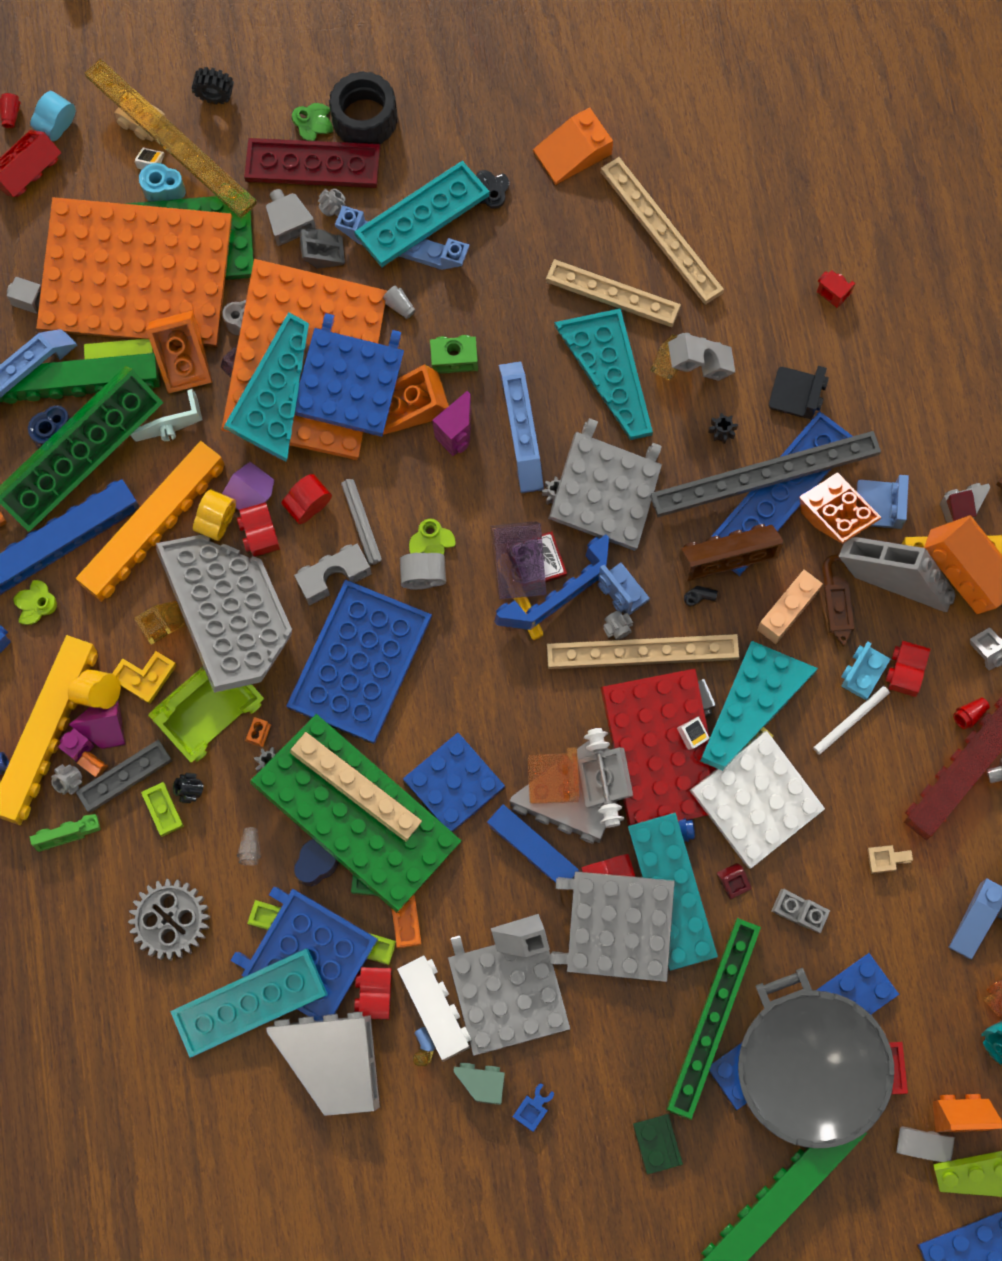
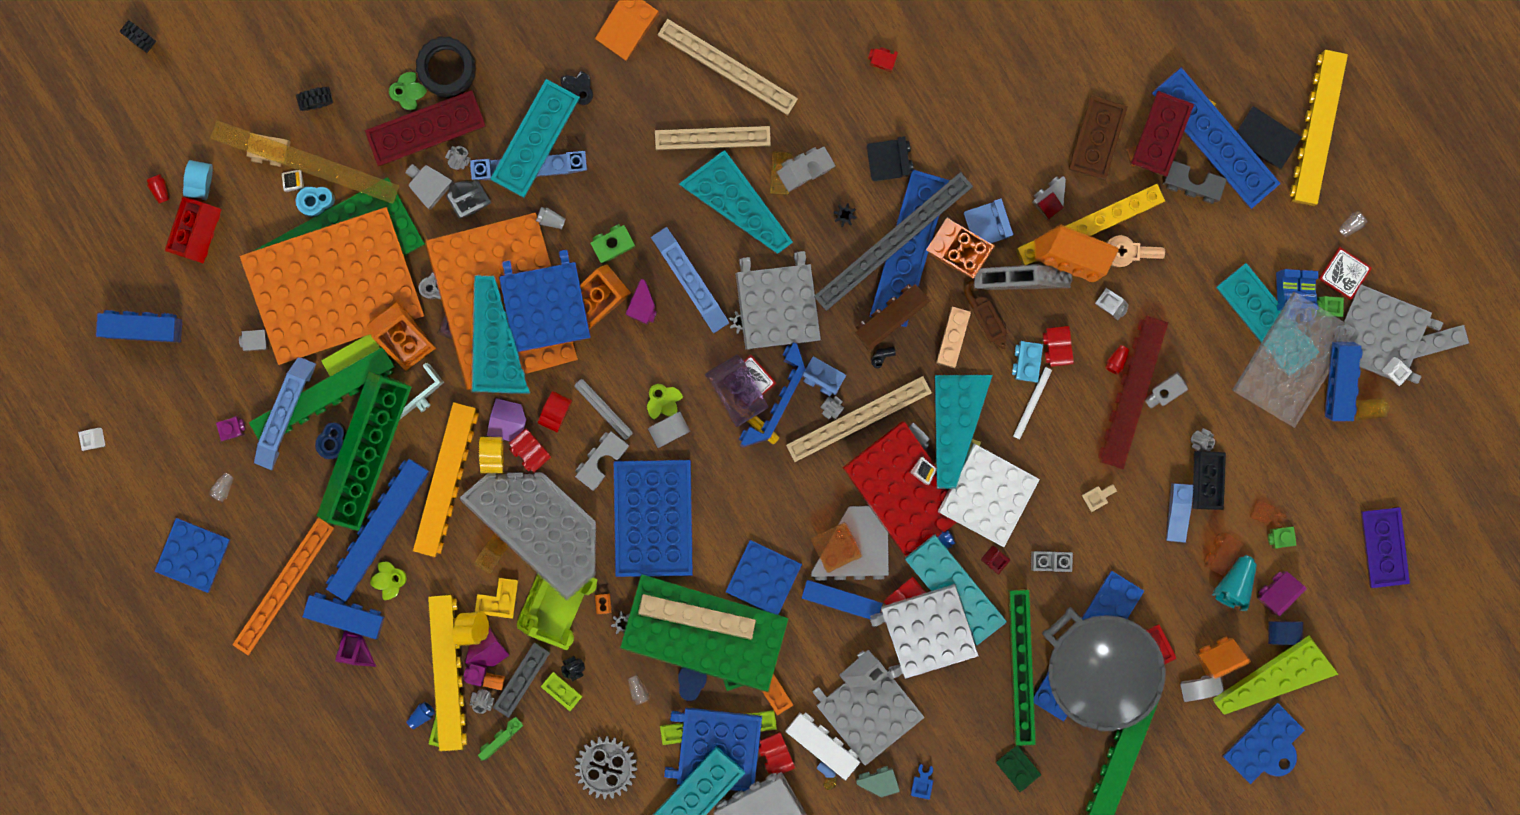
camera: 30 degrees left, 15 degrees up
(604, 777) = (873, 532): light grey plate -> none

